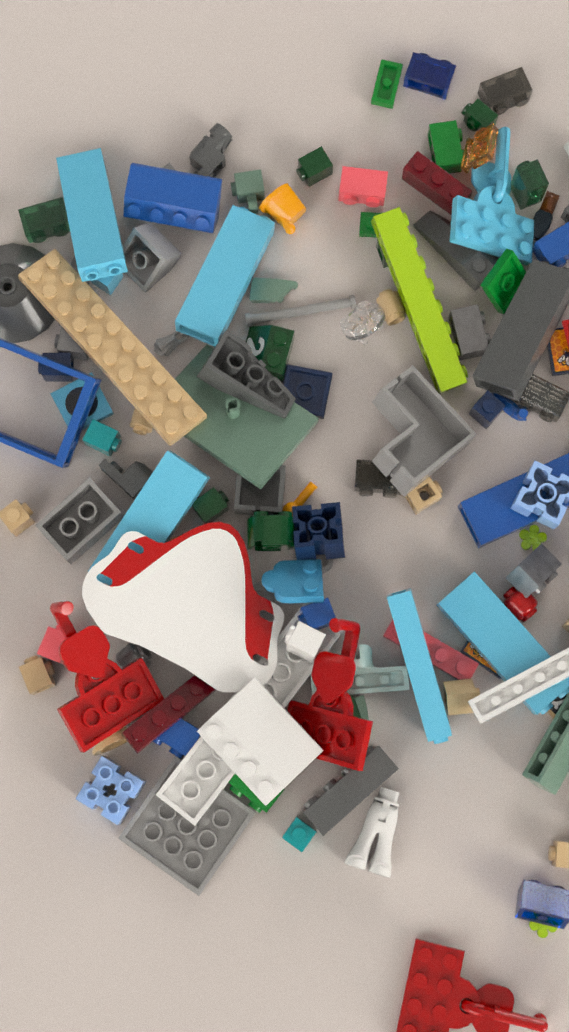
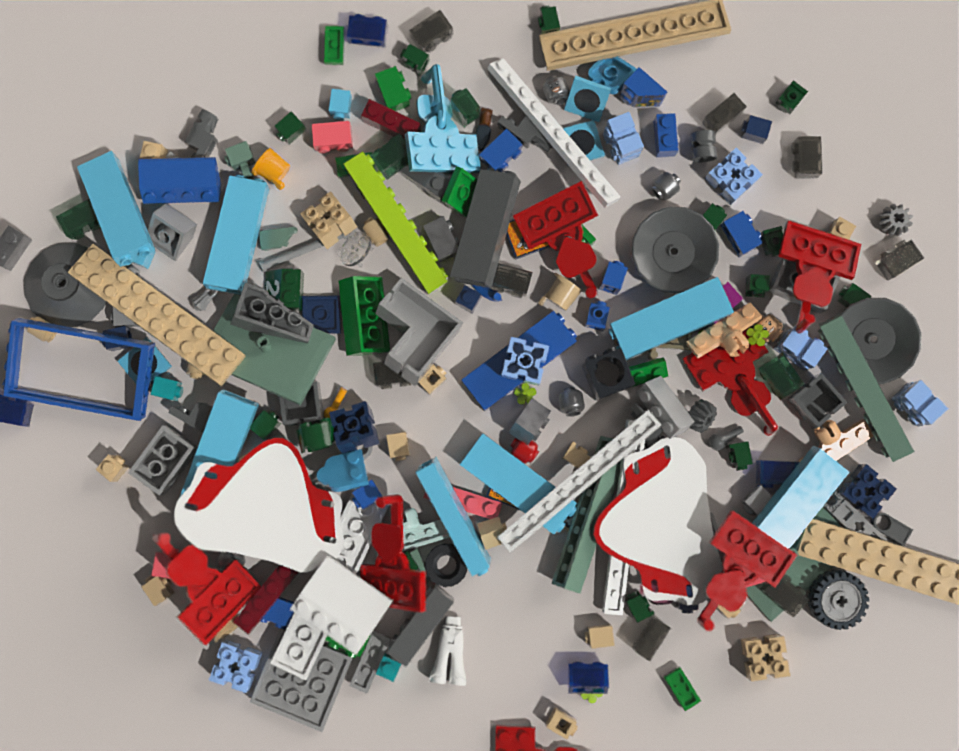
camera: 15 degrees left, 5 degrees up
(149, 157) = (153, 151): none -> tan brick
(276, 822) = (370, 661): none -> light grey plate
(304, 641) = (360, 519): white brick -> none
(339, 281) = (328, 220): none -> tan brick
(352, 416) = (363, 329): none -> green slope
(366, 566) = (398, 446): none -> tan brick
(380, 151) = (340, 104): none -> medium azure brick
(413, 719) = (433, 572): none -> black tyre
(430, 222) = (391, 156): none -> clear green brick
(480, 148) = (419, 86): clear orange plate -> none
(509, 959) = (564, 731): none -> tan brick

